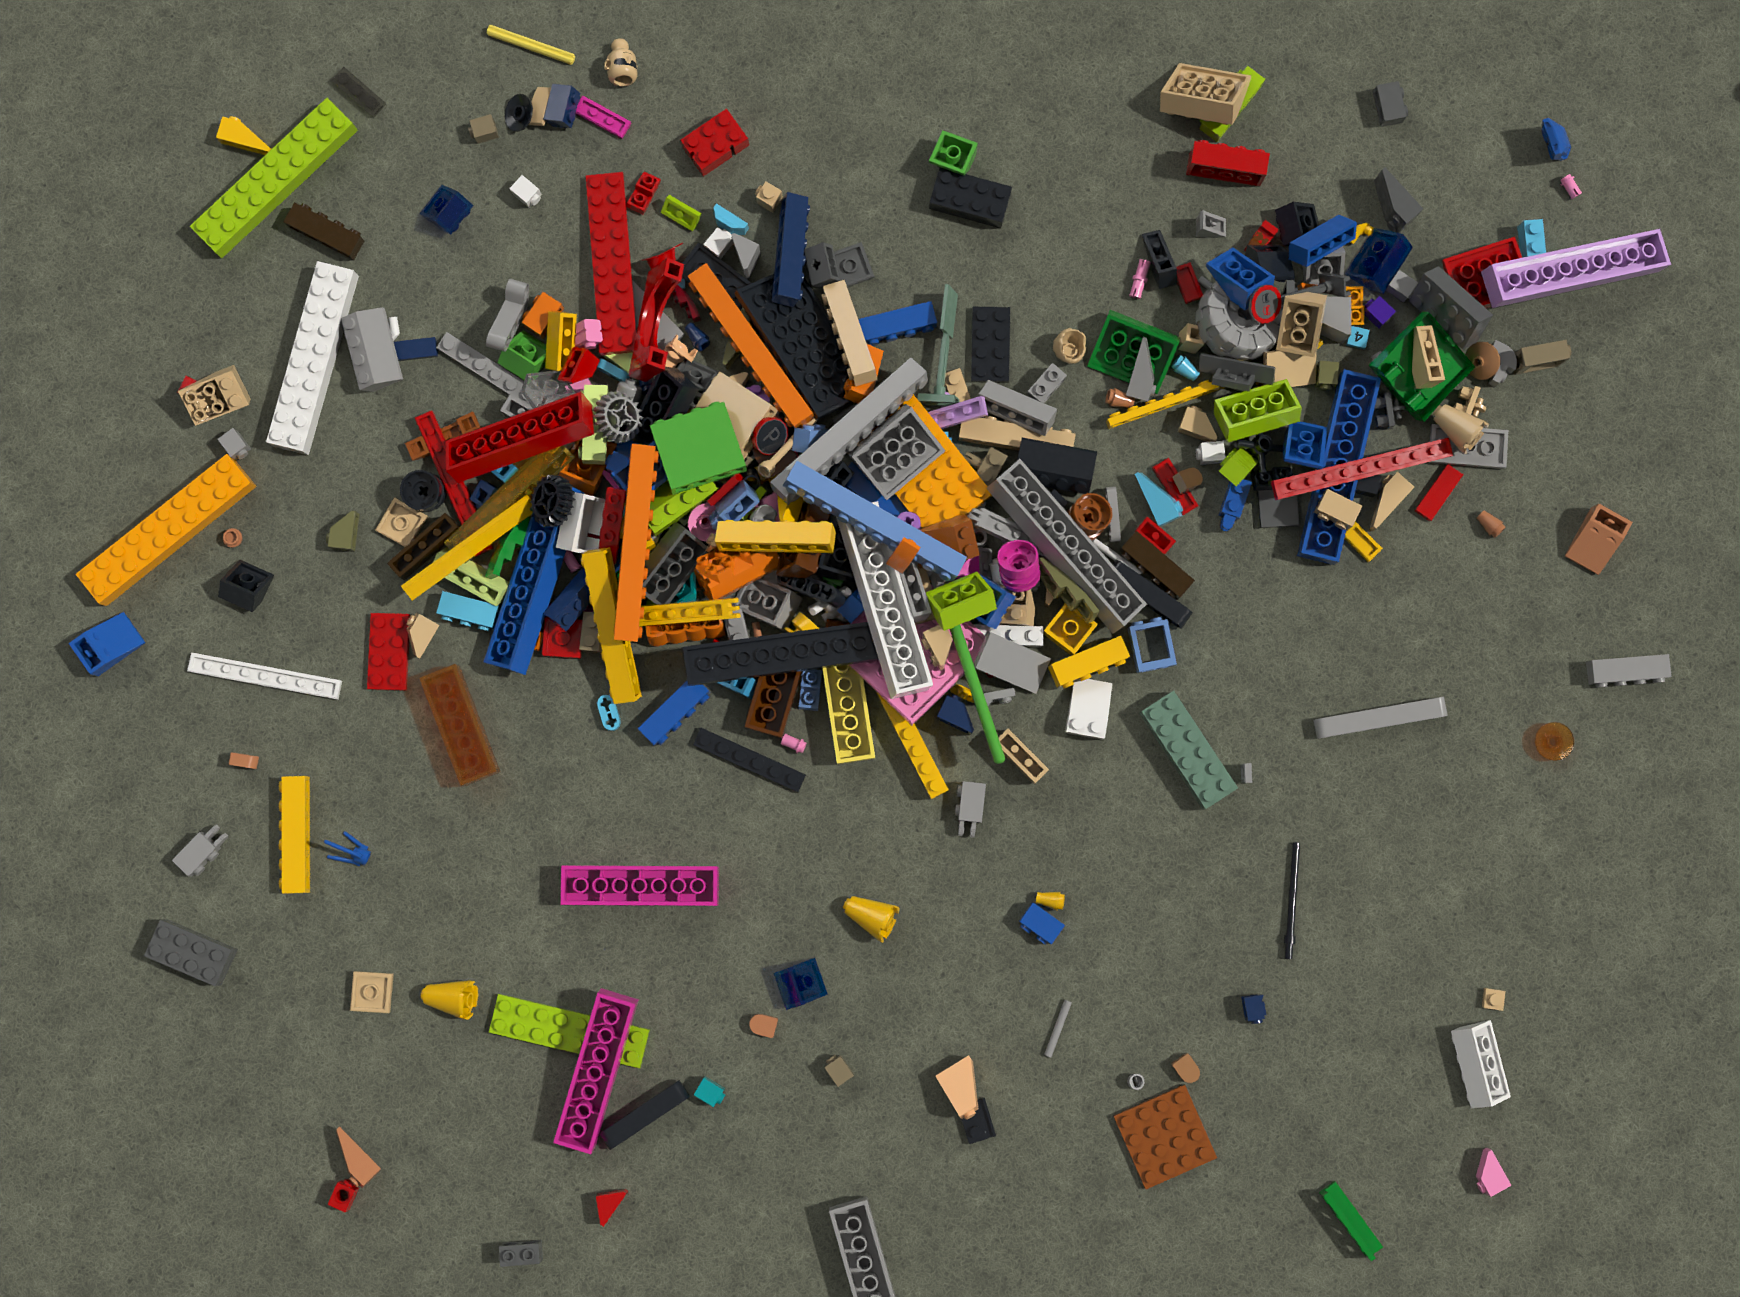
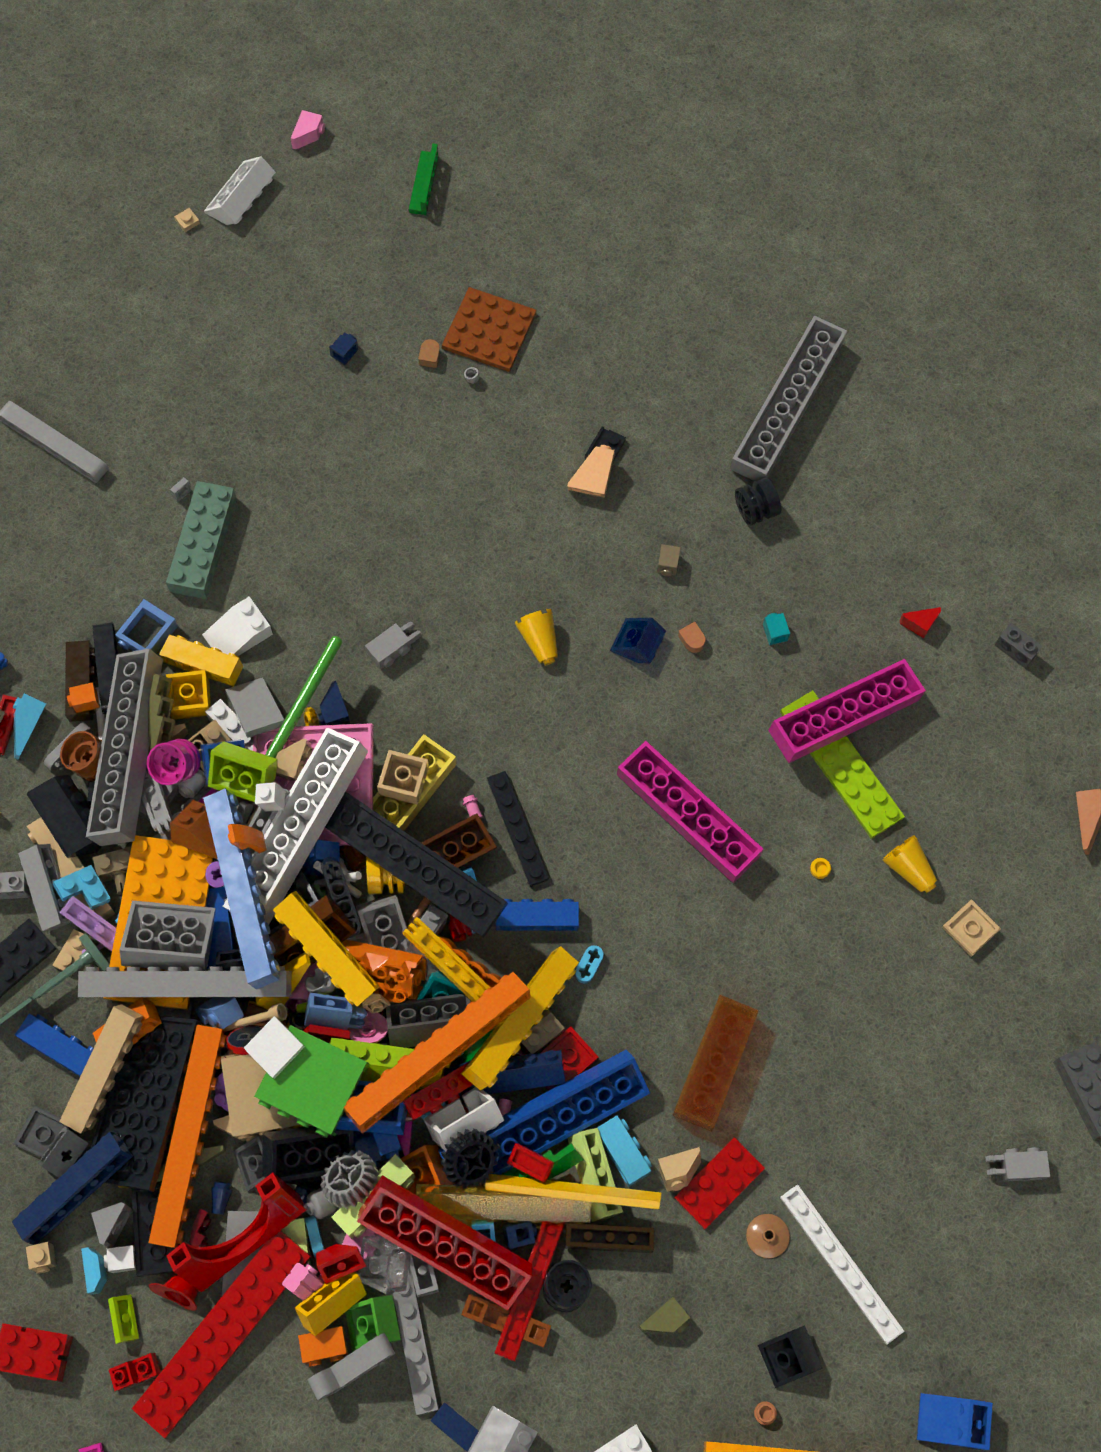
camera: 140 degrees left, 15 degrees down
(243, 760) = (919, 1205): nougat piece -> none
(295, 834) = (927, 1105): yellow brick -> none
(336, 652) = (759, 1243): none -> medium nougat dish
(359, 855) = (891, 1040): blue plant -> none
(401, 523) = (611, 1282): tan tile -> none
(514, 539) = (530, 1162): none -> red tile
(514, 935) = (820, 868): none -> yellow tile
(644, 1115) = (838, 655): black beam -> none
(678, 352) = (247, 1200): light nougat hair -> none
(740, 441) = (274, 1047): none -> white tile
(810, 689) = (425, 830): medium blue slope -> none
(816, 1182) = (758, 501): none -> black wheel
(852, 708) = (403, 777): none -> tan brick
(916, 751) = (389, 716): yellow brick -> none
(918, 598) = (270, 796): none -> white brick
(990, 435) = (84, 882): none -> medium azure plate
(1003, 696) = (286, 692): light grey plate -> none
(1022, 757) = (319, 636): tan brick -> none
(1041, 923) = (426, 524): blue brick -> none
(1052, 900) = (403, 533): yellow cone -> none
(1057, 1029) = (487, 454): light grey bar -> none
(1134, 551) = (83, 697): none -> orange brick
(1155, 535) = (55, 702): red slope -> none
(1289, 938) = (272, 367): black bar -> none

